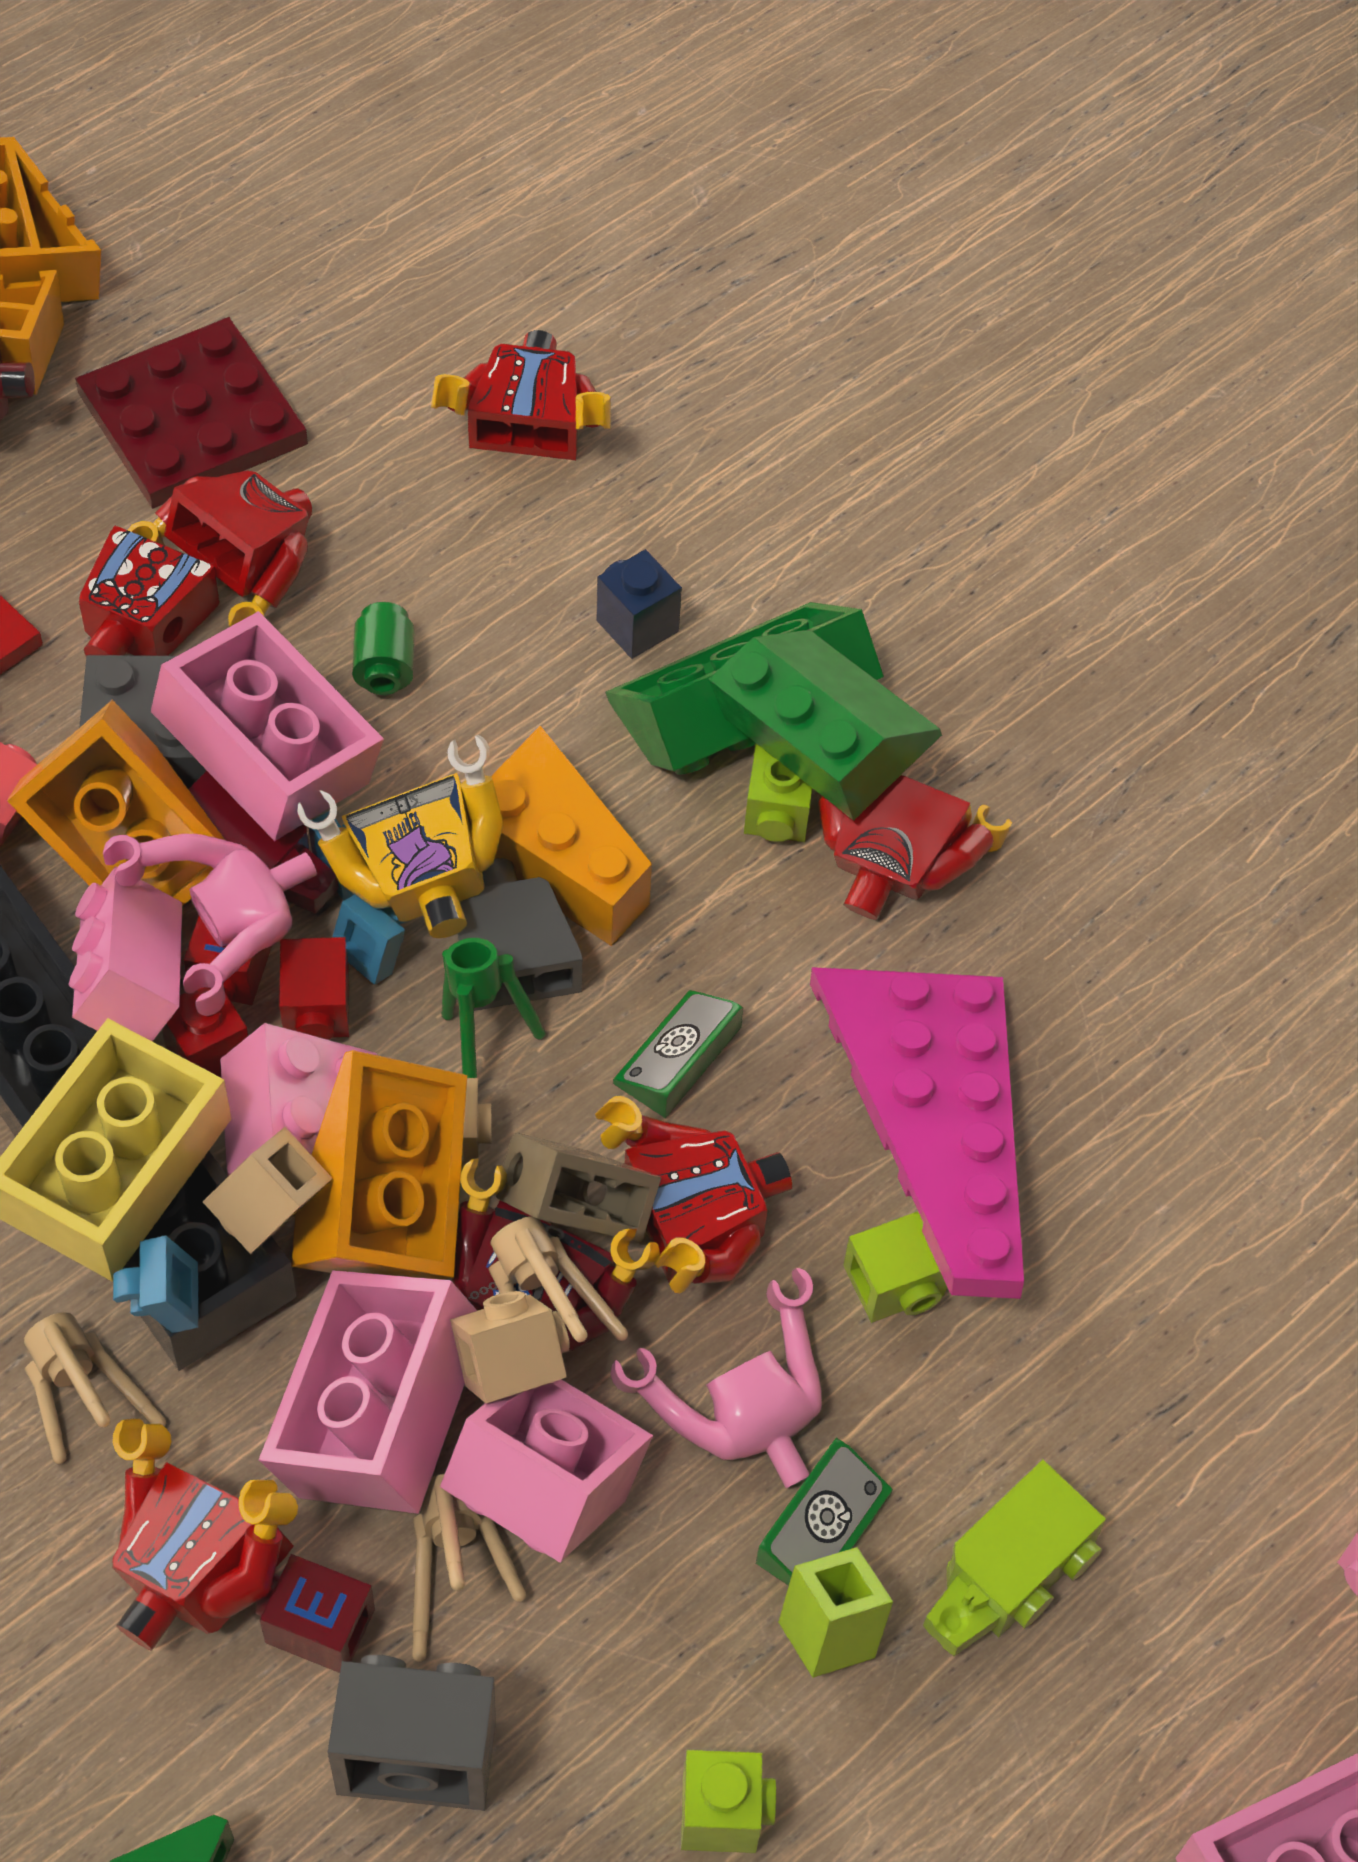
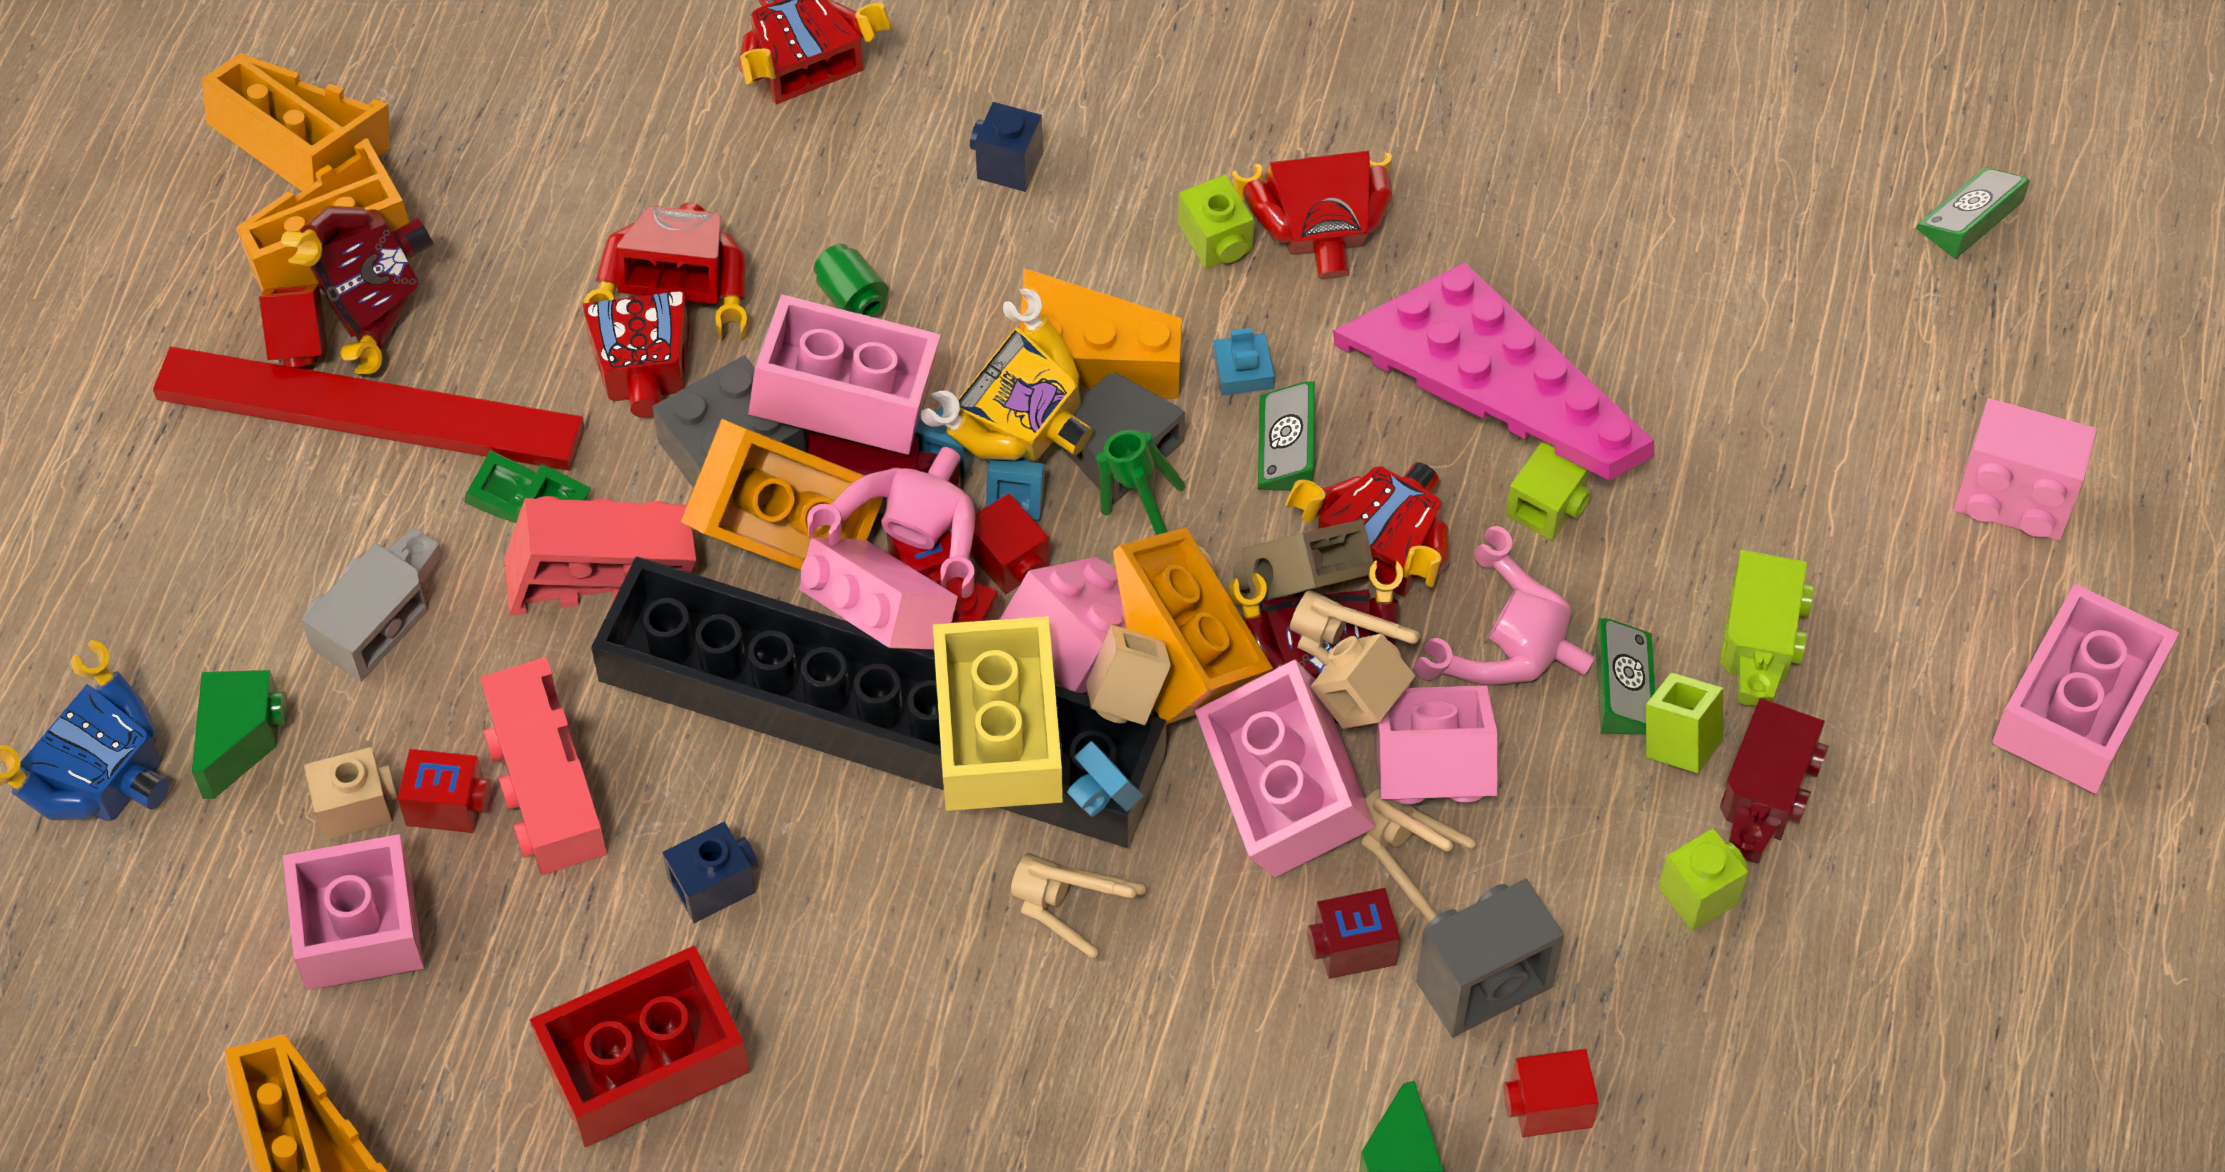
camera: 30 degrees left, 0 degrees up
(190, 1543) = (1248, 937): red torso -> none
(191, 410) = (545, 192): dark red plate -> none
(676, 710) = (1130, 160): green slope -> none
(698, 947) = (1243, 362): none -> dark azure tile
(822, 717) = (1226, 149): green slope -> none
(886, 1735) = (1769, 776): none -> dark red hinge

